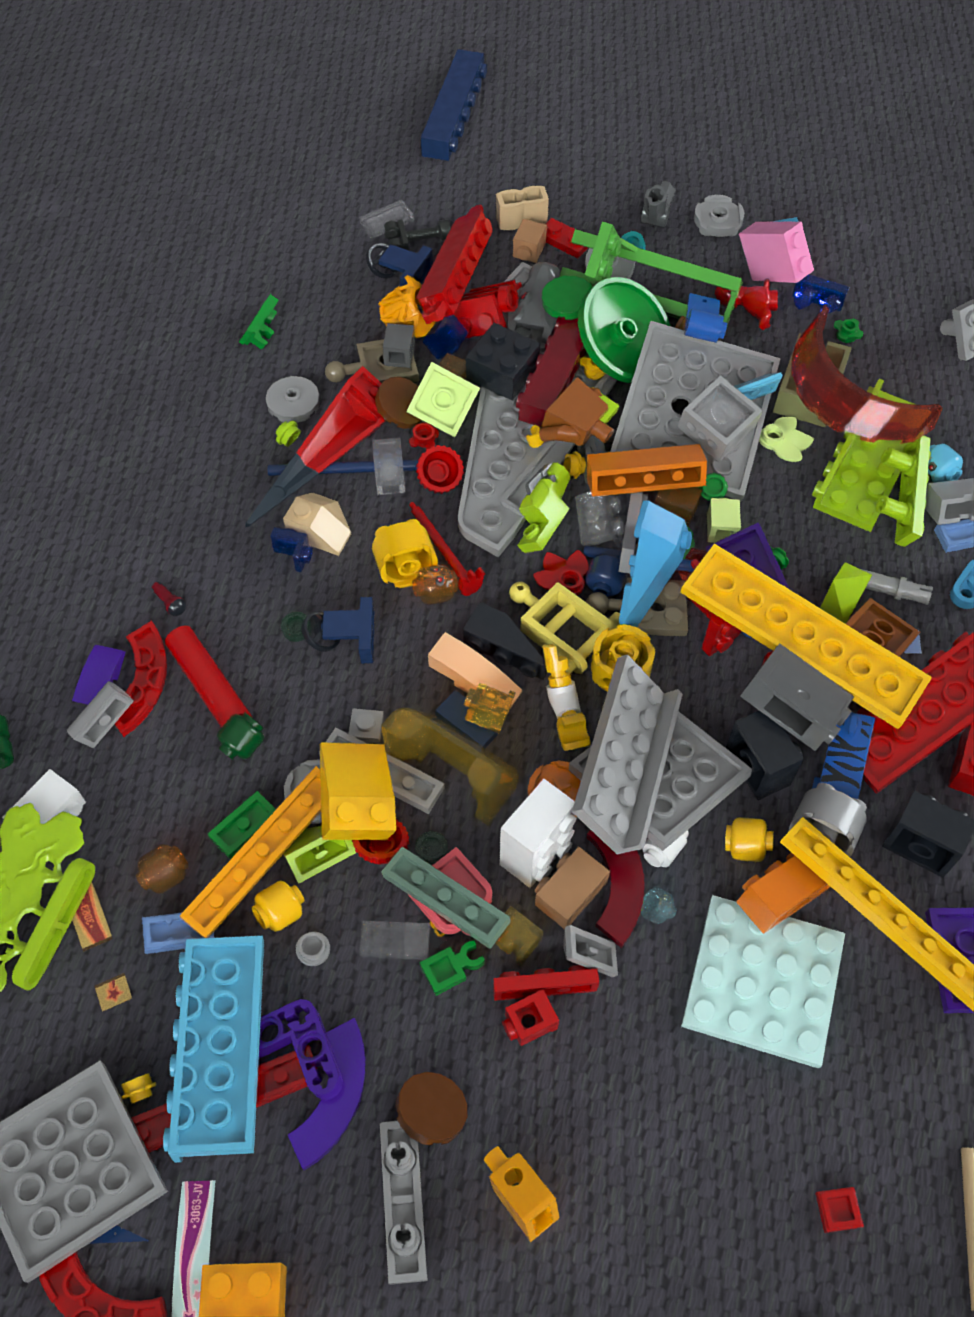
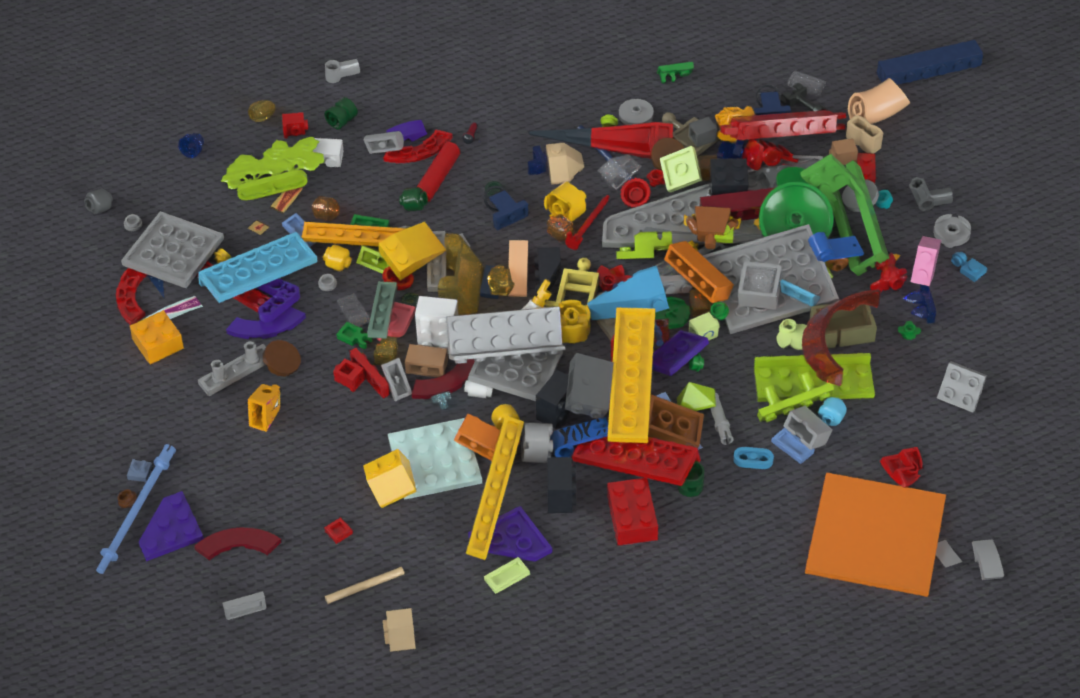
camera: 60 degrees right, 10 degrees down
(484, 169) = (878, 102): none -> light nougat brick
(791, 1069) = (390, 478): none -> yellow slope

